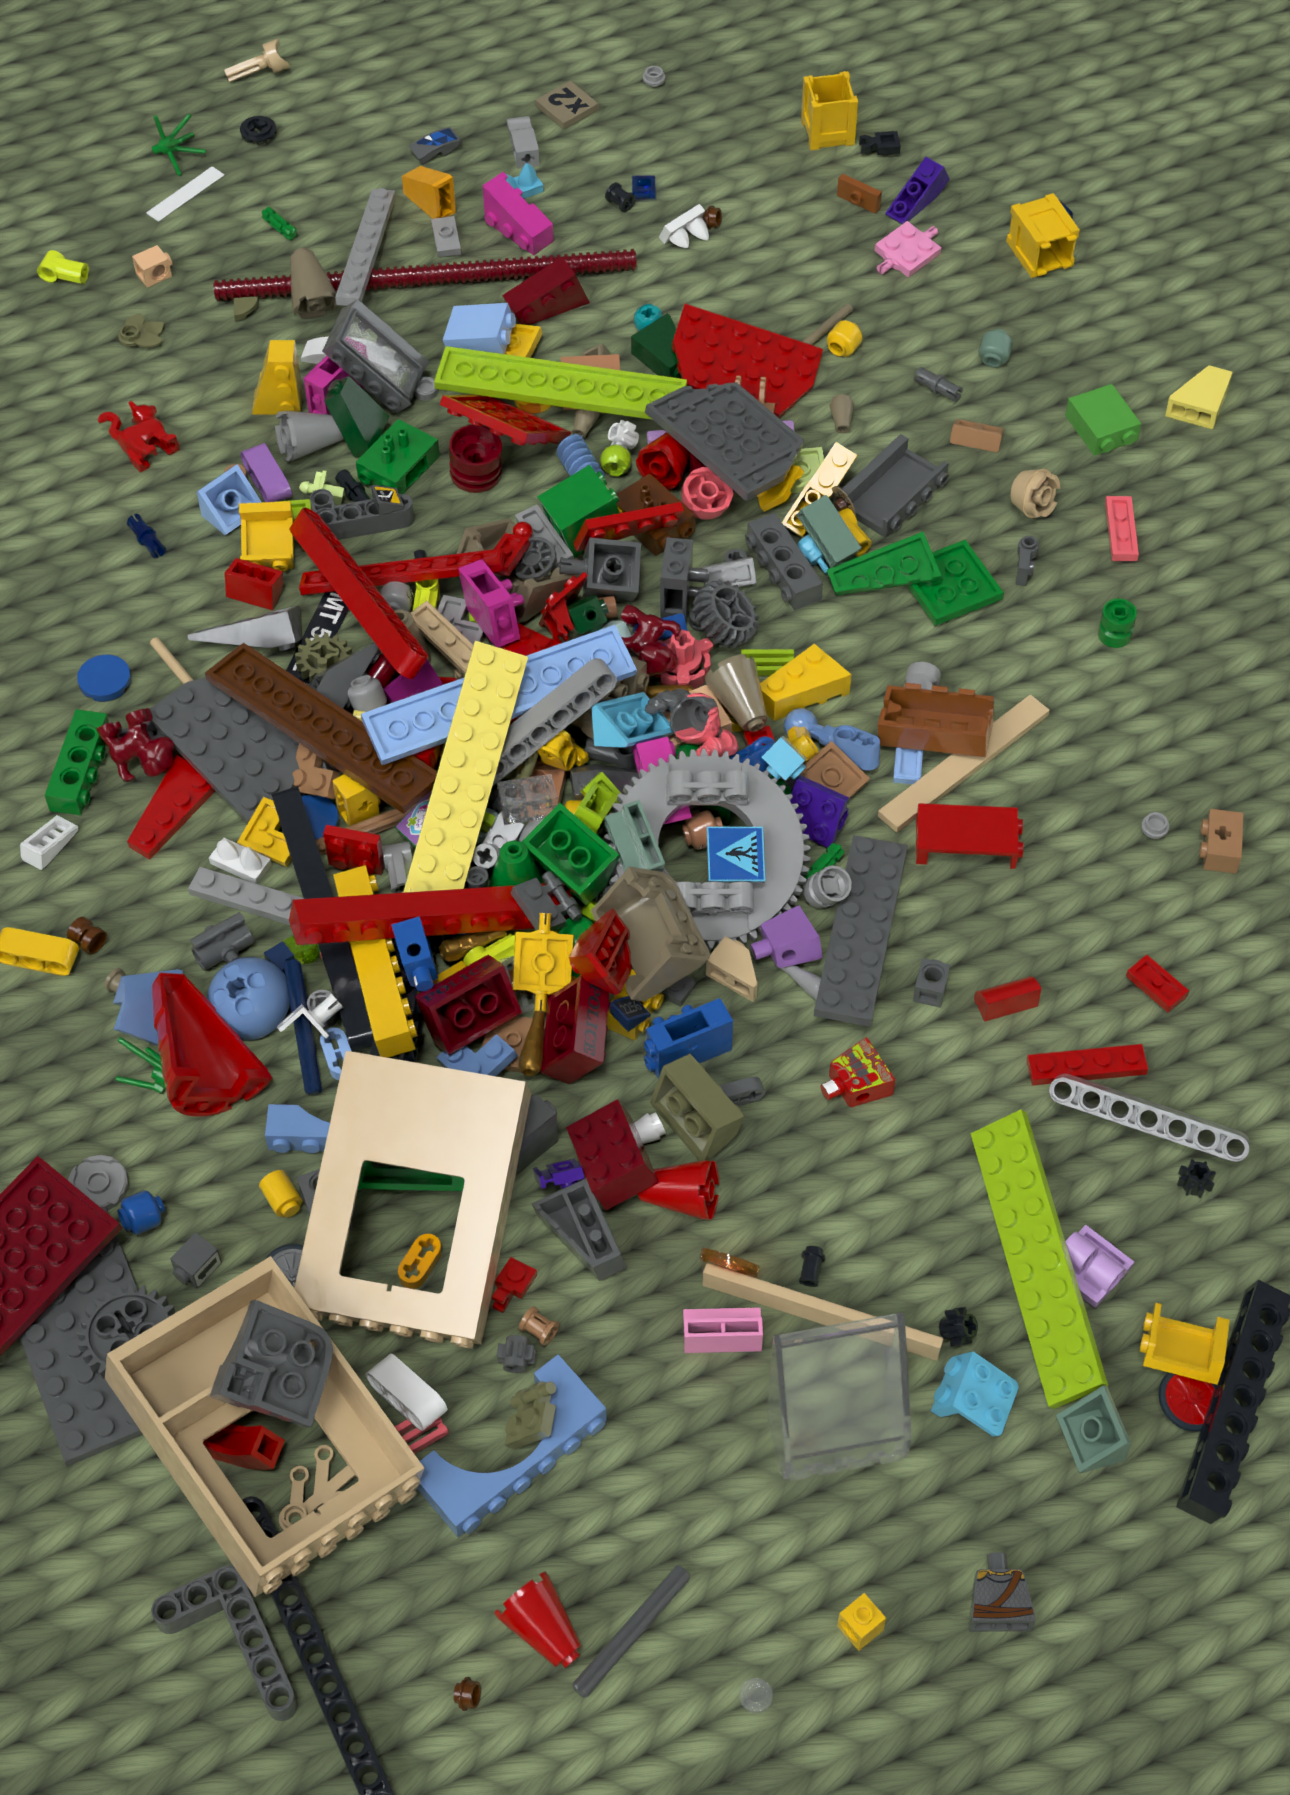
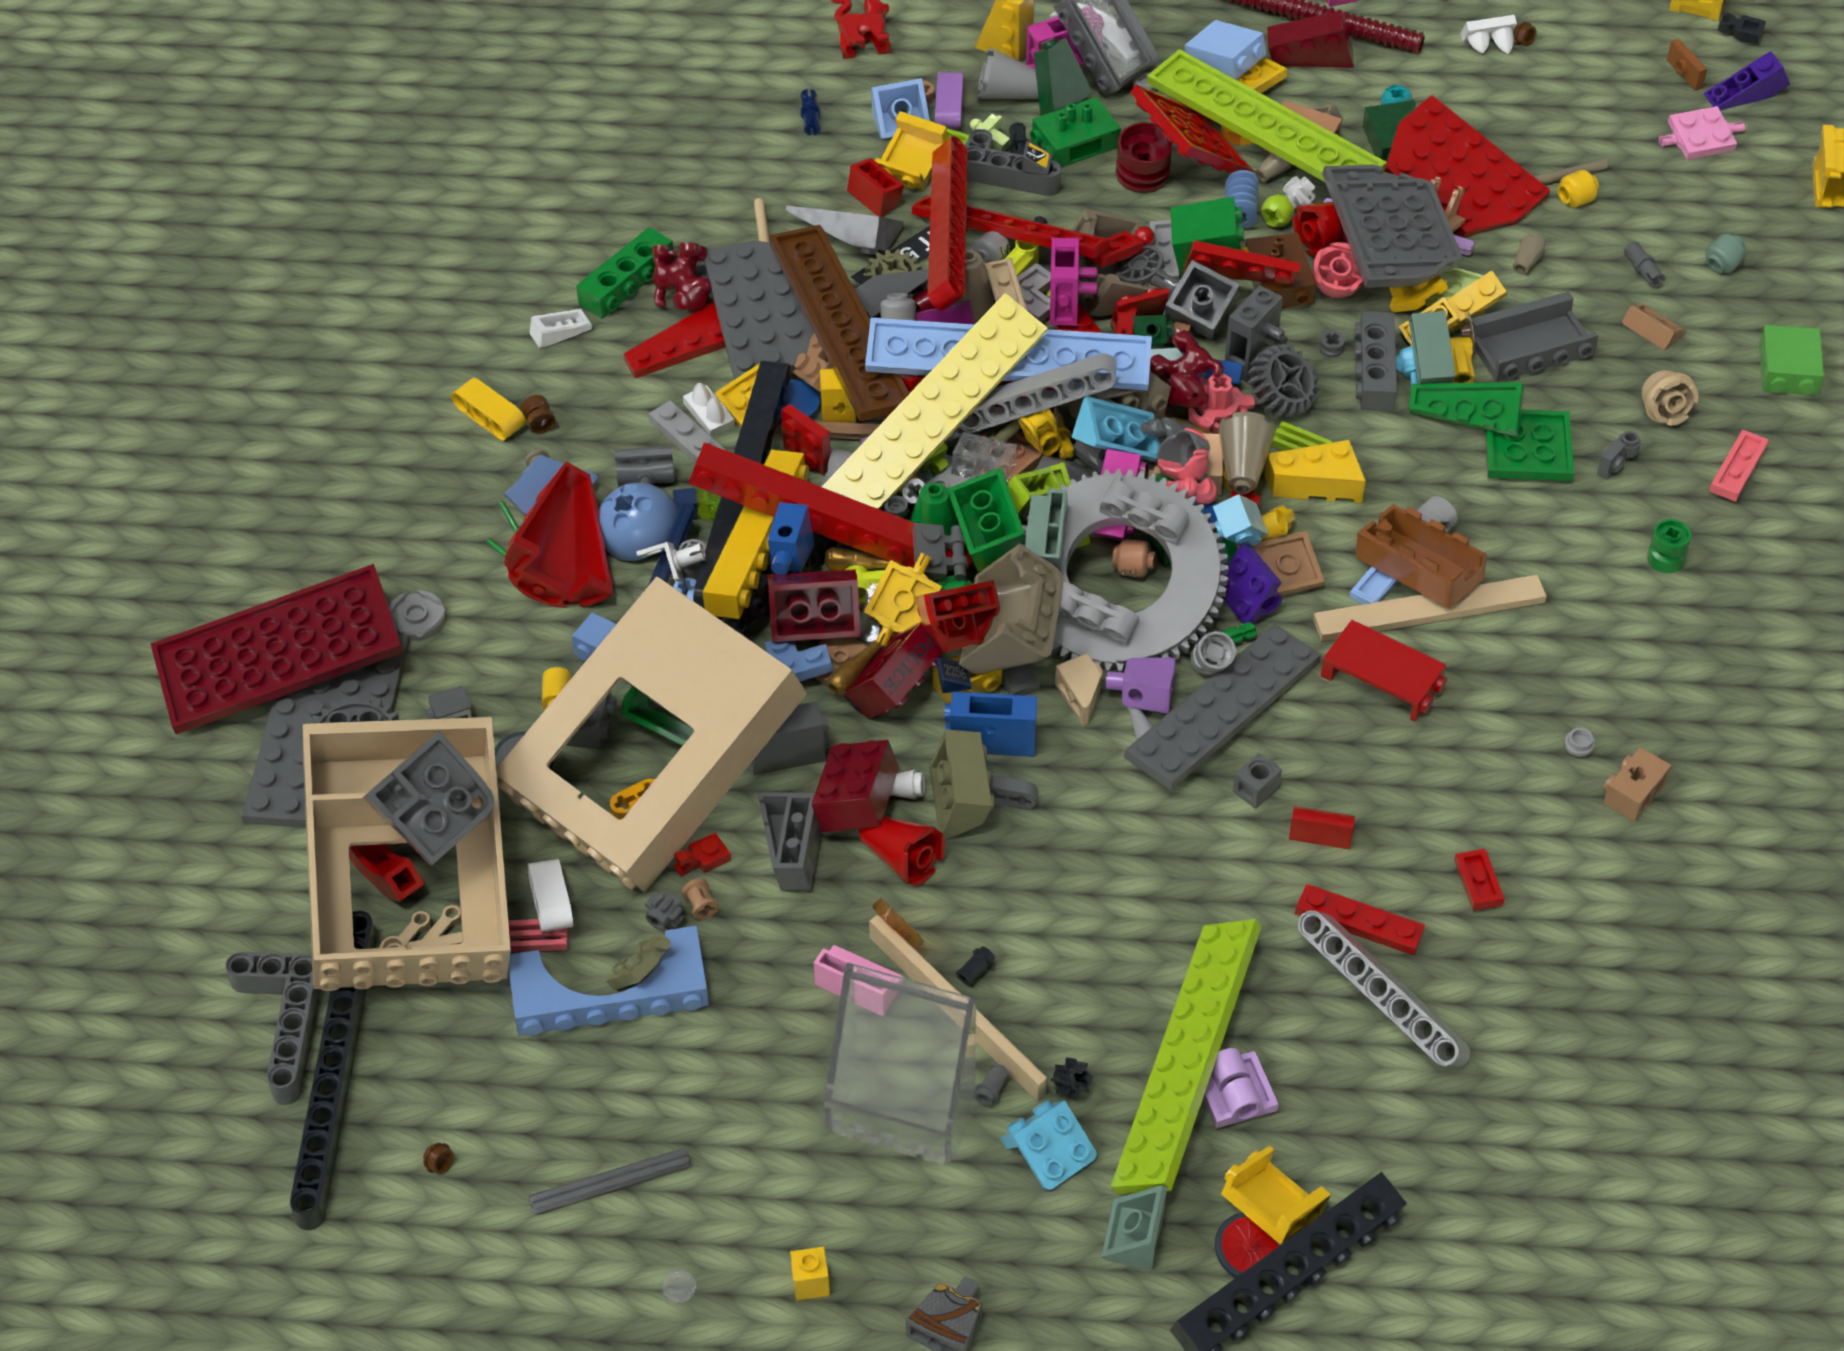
camera: 30 degrees right, 5 degrees down
(104, 677) = (695, 214): blue tile -> none
(141, 1212) = (432, 651): blue head -> none
(541, 1621) = (535, 1127): red cone -> none
(563, 1173) = (799, 782): dark purple plate -> none
(735, 854) = (1136, 581): piece -> none
(736, 571) = (1320, 351): light grey plate -> none
(855, 743) = (1328, 543): medium blue beam -> none
(859, 1076) = (1130, 828): torso -> none
(1196, 1178) = (1392, 1063): black gear -> none

